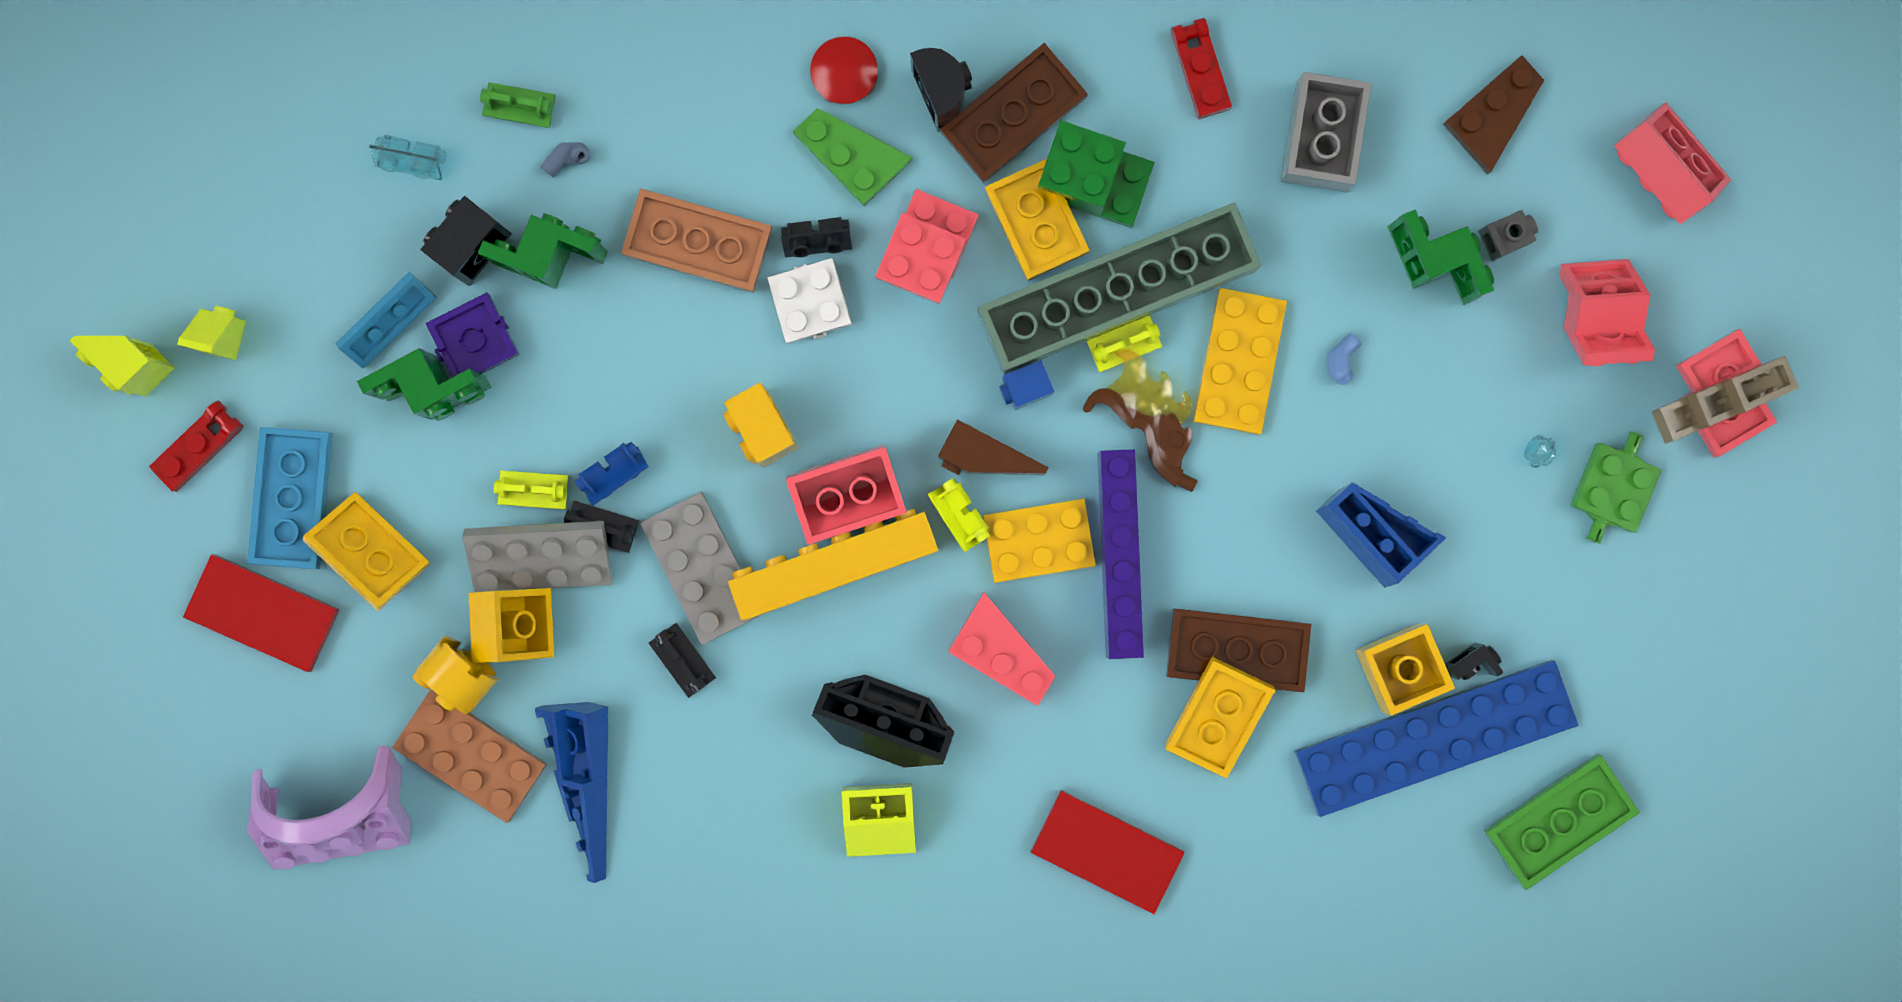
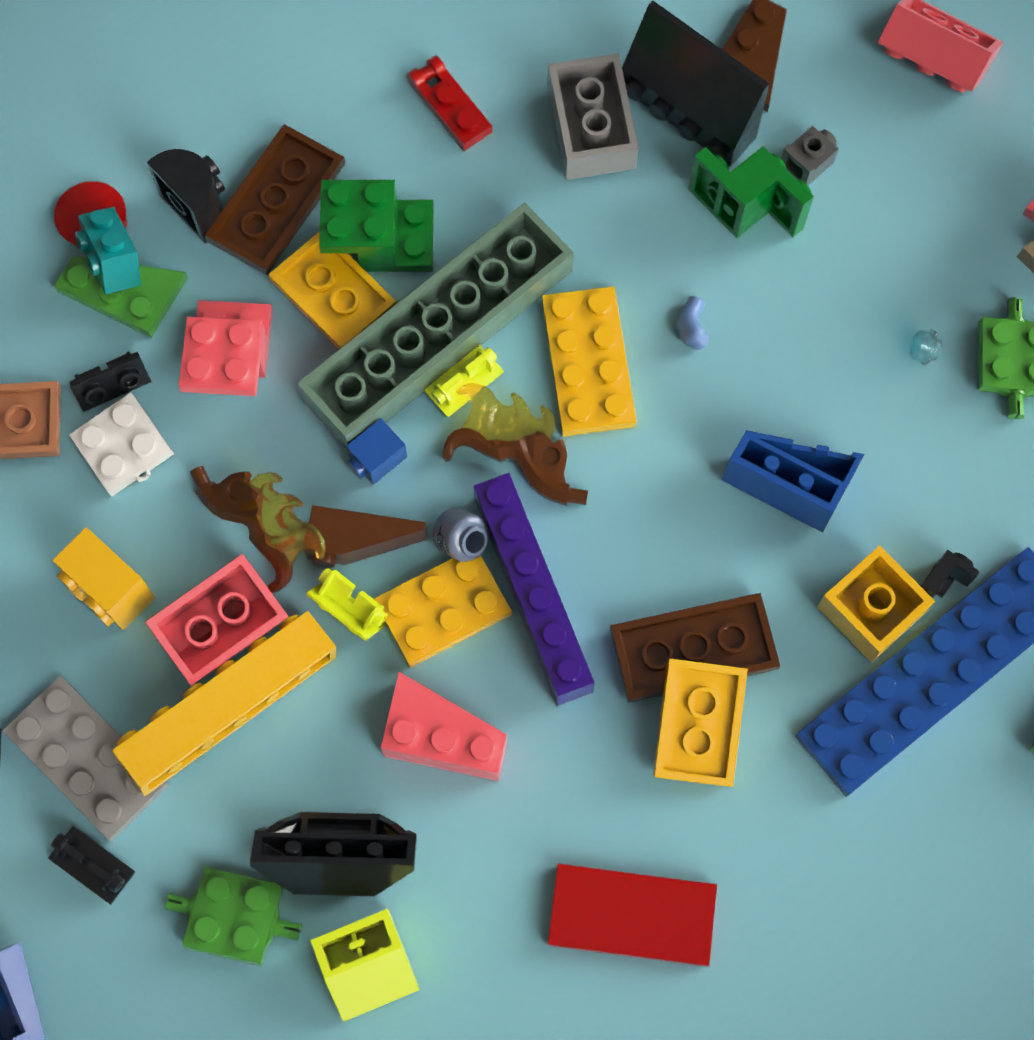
camera: 15 degrees left, 15 degrees down
(784, 742) = (233, 916): none -> bright green plate
(851, 119) = (108, 250): none -> teal brick
(915, 414) = (267, 516): none -> piece
(1075, 486) = (460, 534): none -> sand blue head
(1427, 138) = (694, 85): none -> black slope
(1606, 312) = (935, 192): coral bracket -> none

